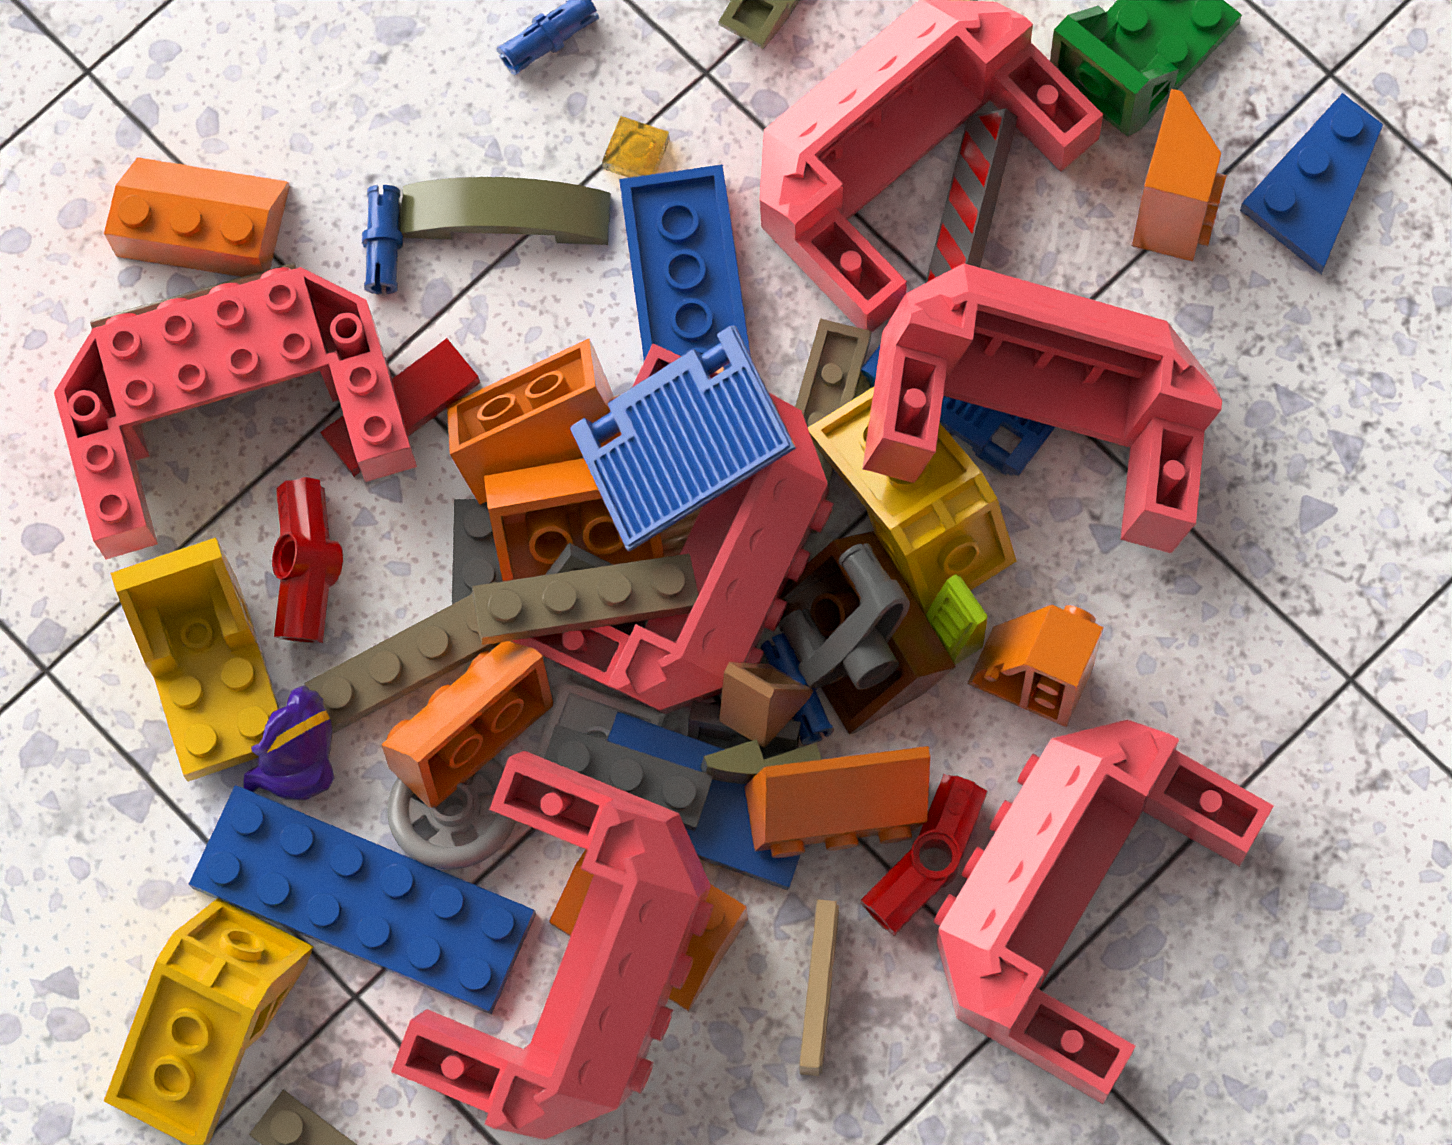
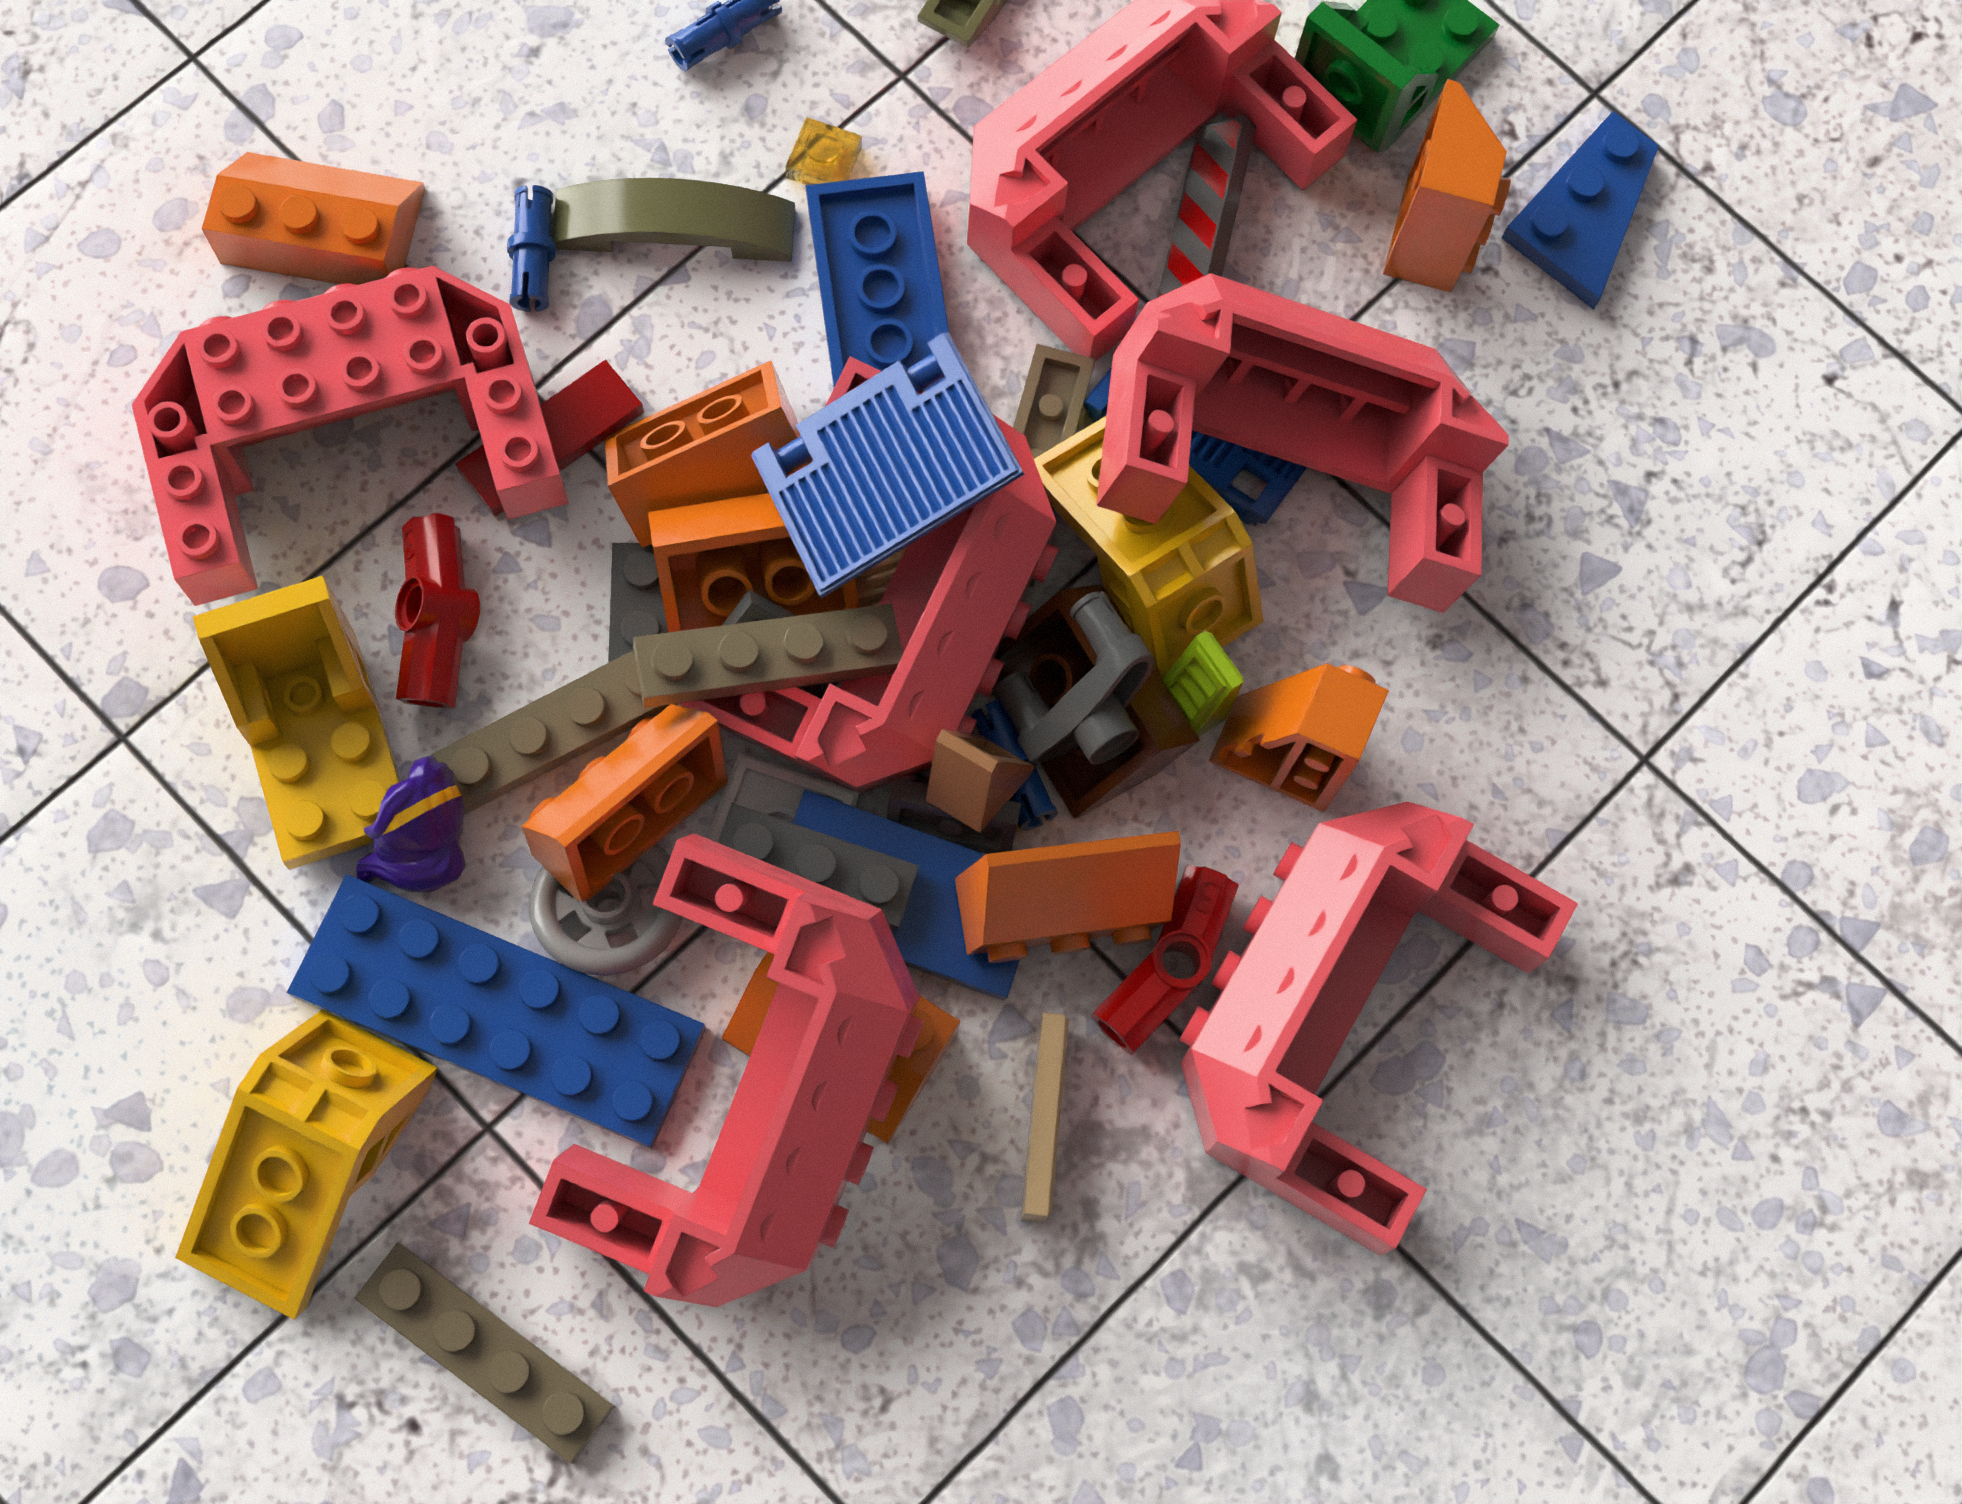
camera: 15 degrees left, 0 degrees up
(745, 761) = (959, 848): olive slope -> none

